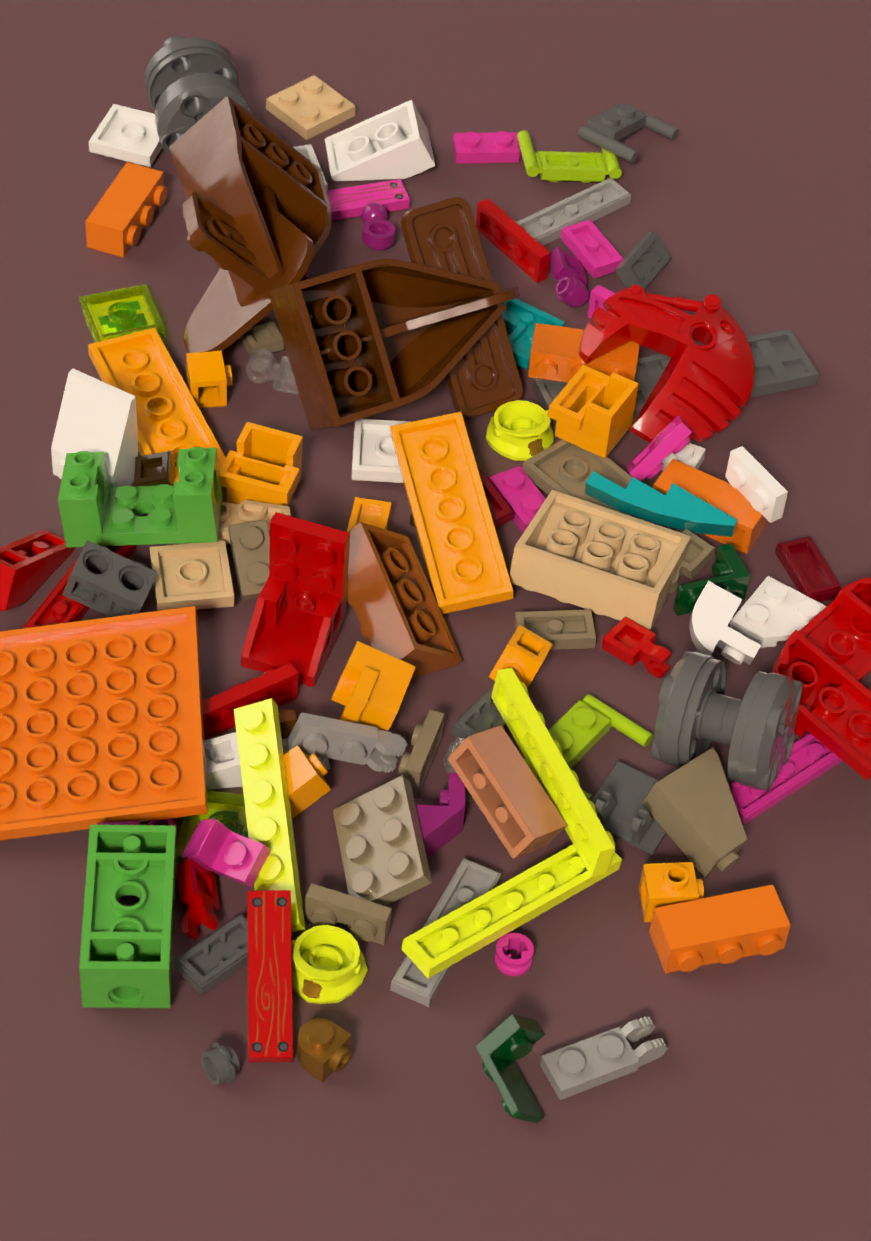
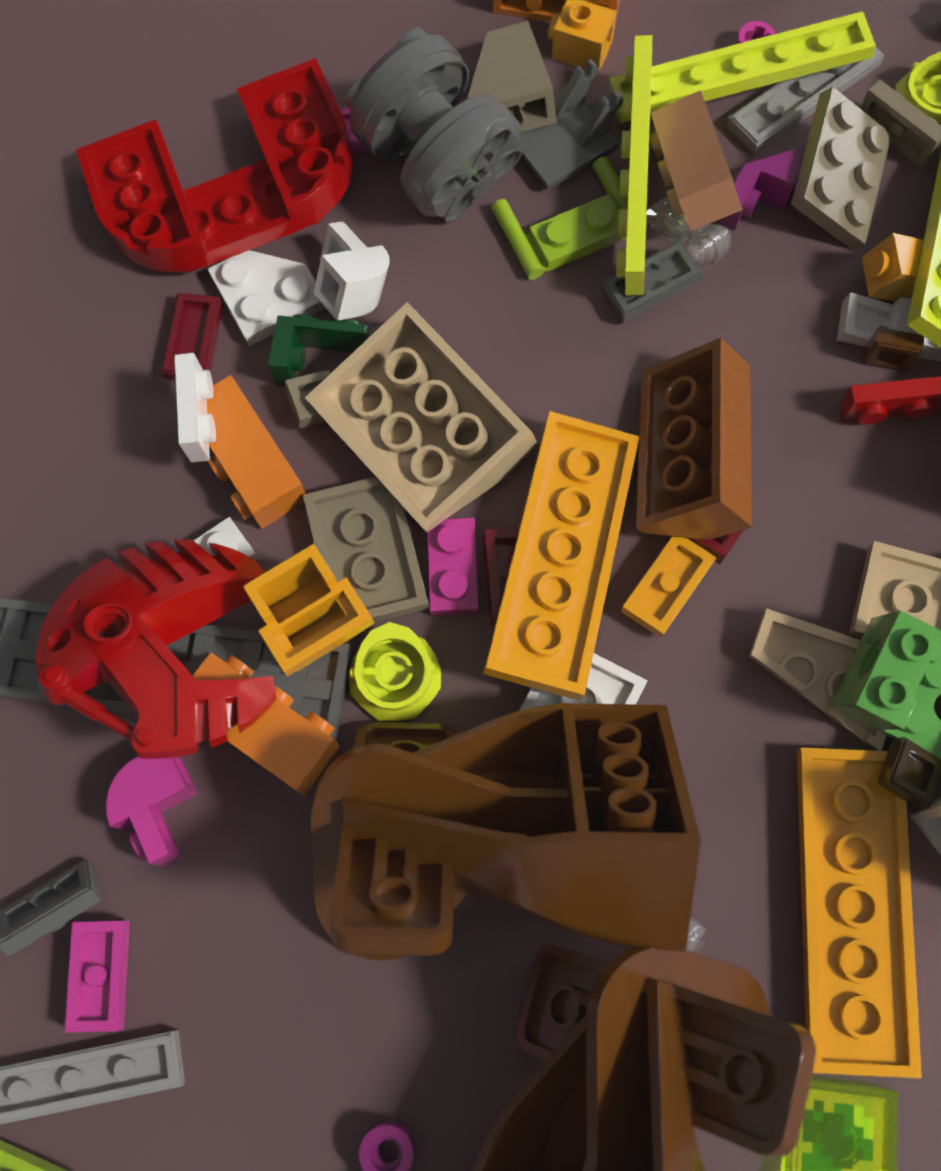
camera: 145 degrees left, 25 degrees up
(208, 378) = (770, 936): light orange brick -> none
(251, 556) = (829, 587): dark tan plate -> none
(263, 467) = (770, 713): light orange plate -> none
(302, 599) = (815, 468): red bracket -> none
(347, 742) = (831, 287): light grey hinge -> none
(372, 687) = (782, 325): light orange plate -> none
(426, 742) = (737, 273): dark tan plate -> none
(512, 240) = (199, 1044): red plate -> none
(520, 323) = (274, 853): teal plate -> none
(524, 654) = (593, 314): light orange brick -> none
(561, 627) = (523, 361): dark tan plate -> none
(570, 277) = (161, 932): magenta plate -> none
(634, 643) = (448, 308): red plate -> none
(670, 439) = (257, 533): dark pink plate -> none
(675, 509) = (311, 433): teal slope -> none

